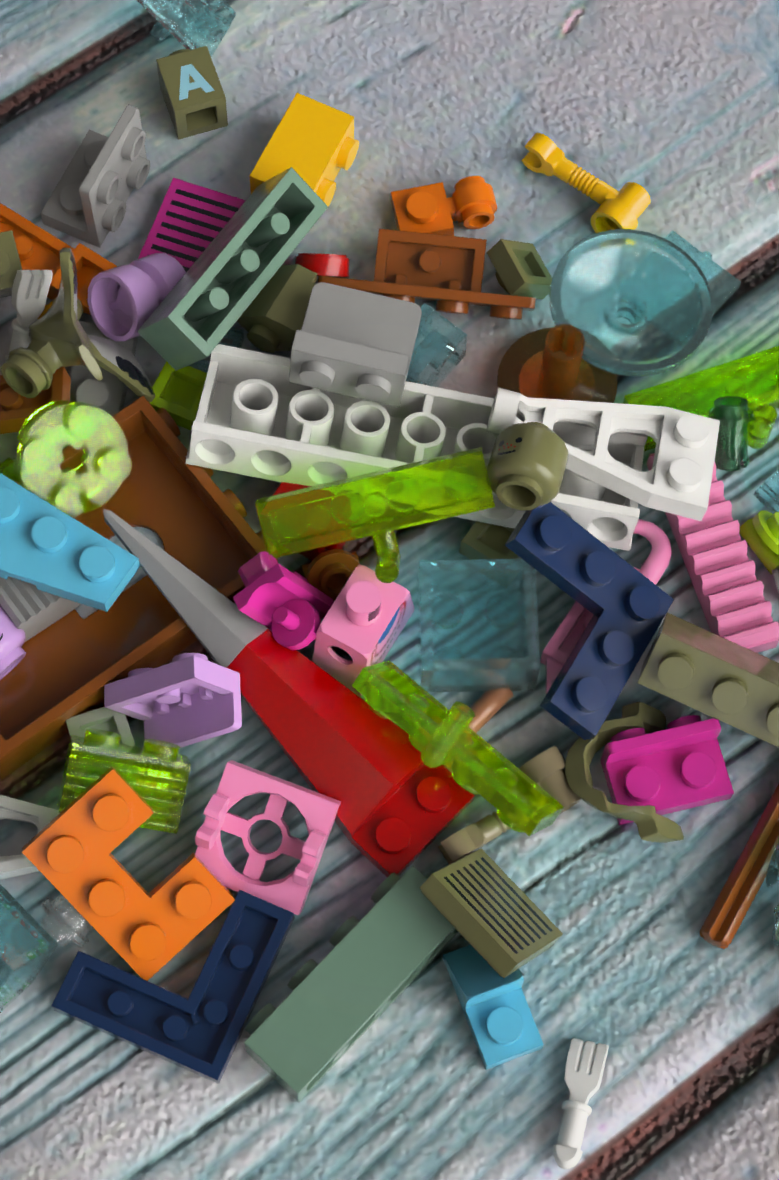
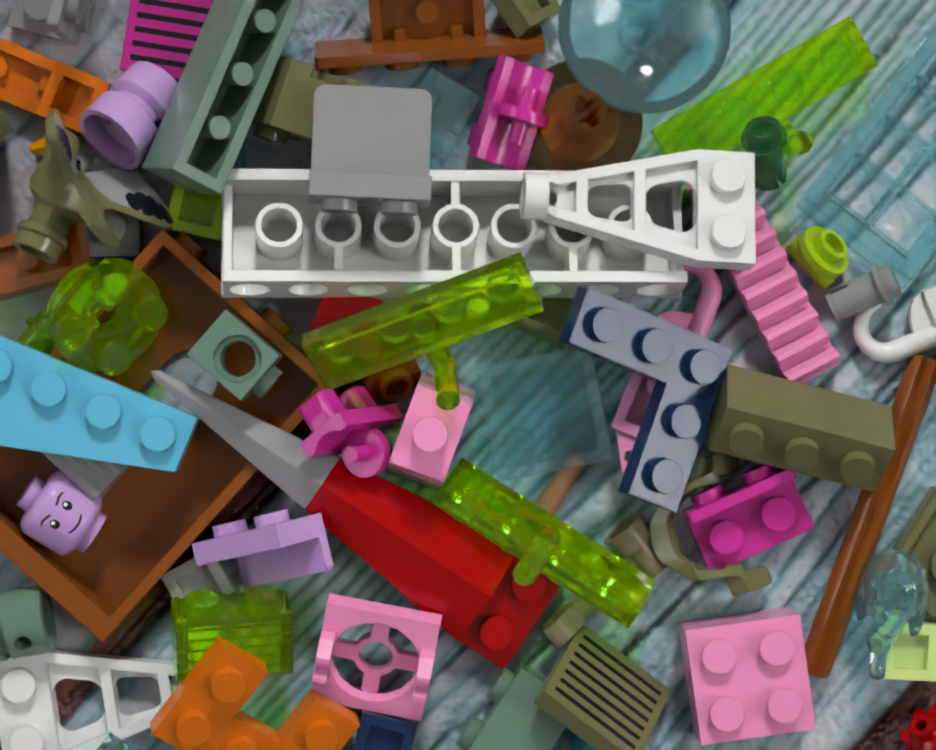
camera: 10 degrees left, 20 degrees up
(29, 301) = (21, 146): white piece -> none
(184, 489) = (212, 350): none -> sand green brick
(325, 264) = (316, 35): red tile -> none
(493, 353) = (510, 113): none -> dark pink hips
(527, 465) = (569, 262): olive head -> none
(644, 922) = (747, 675): none -> bright pink brick

